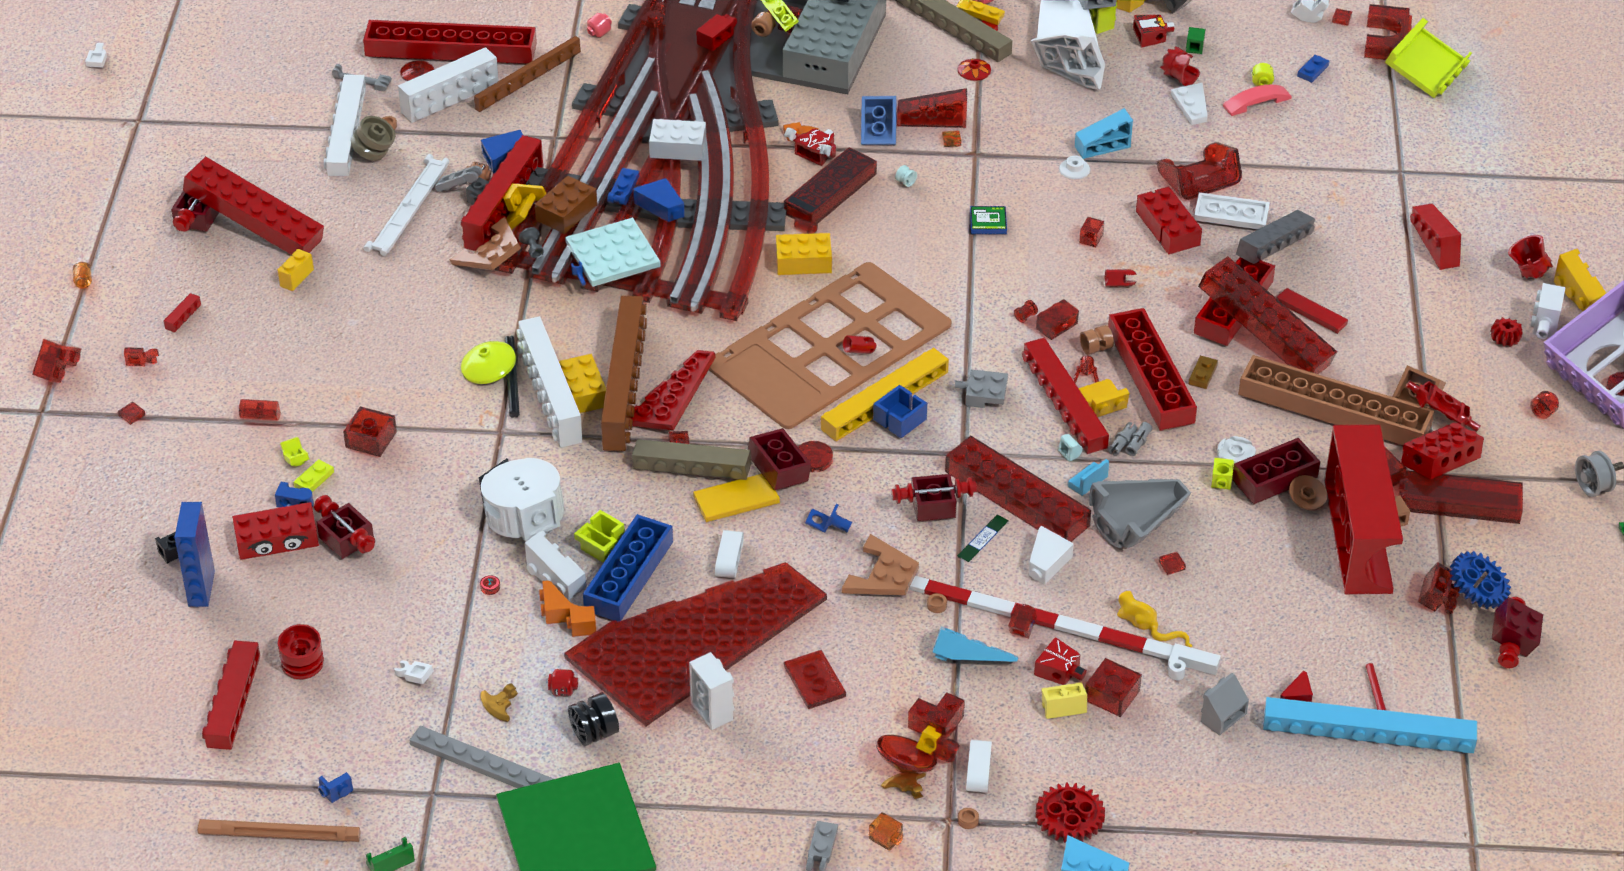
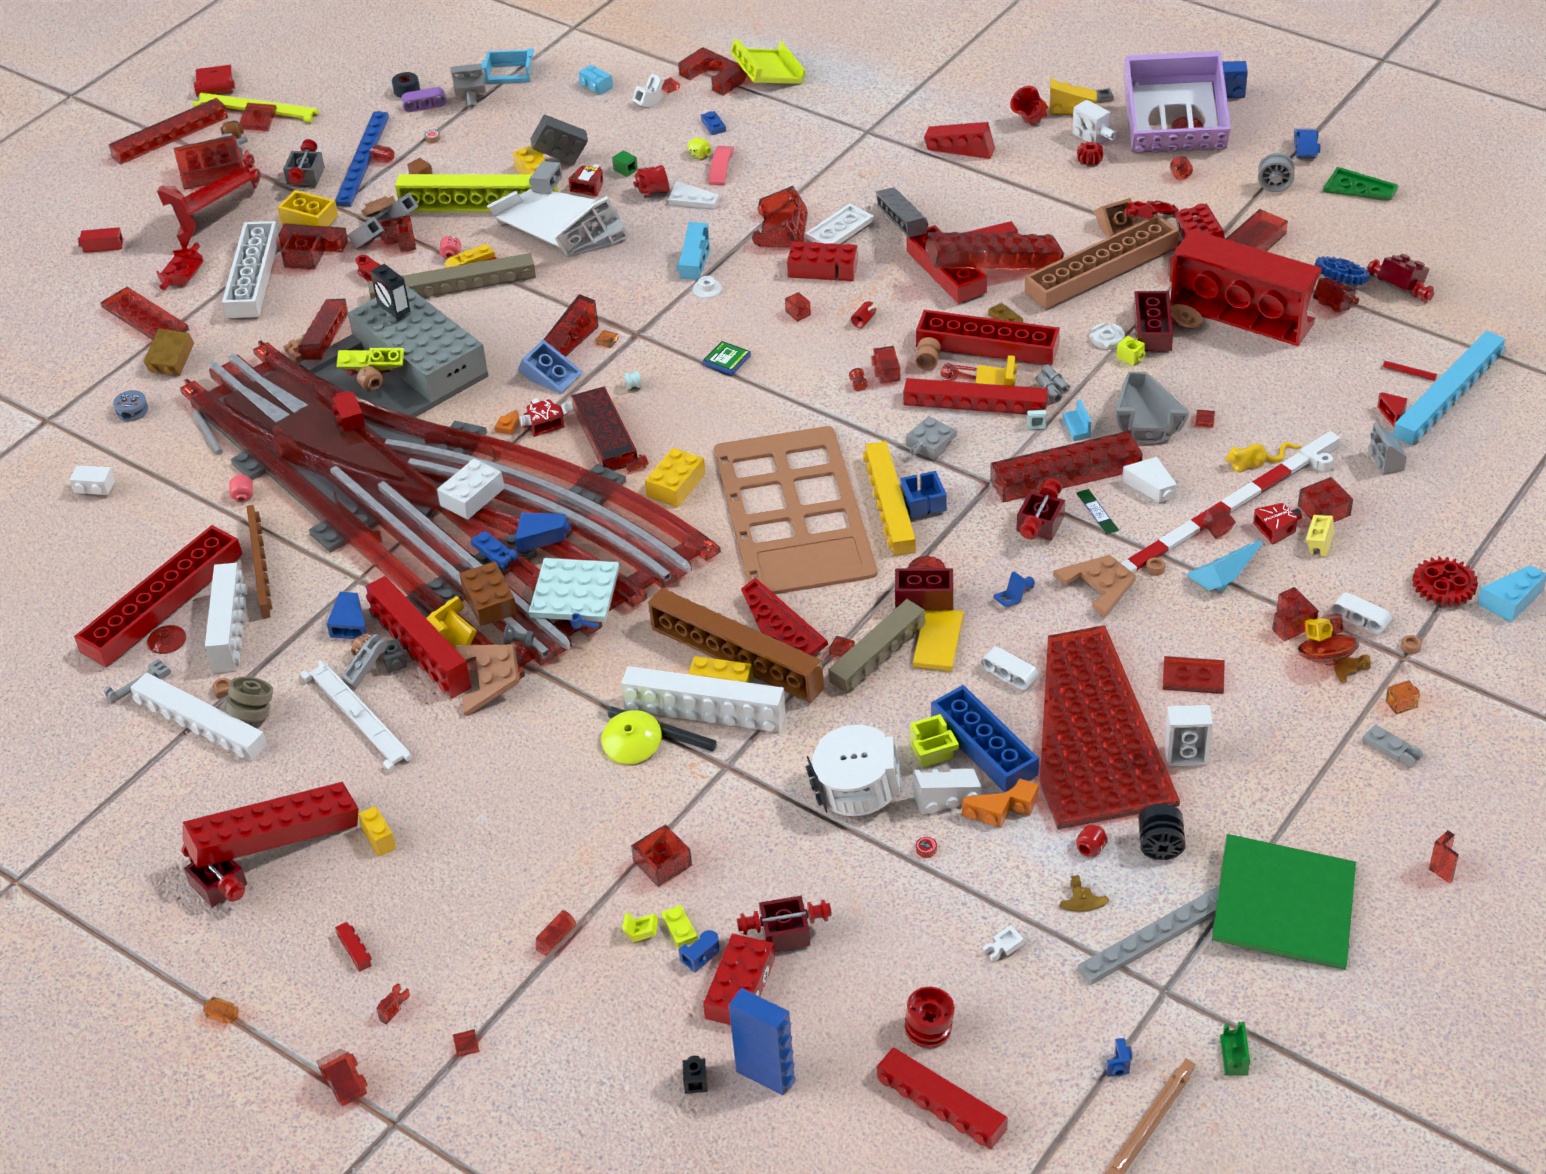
camera: 55 degrees left, 0 degrees up
(859, 344) = (818, 489): red piece -> none
(974, 69) = (532, 293): red dish -> none

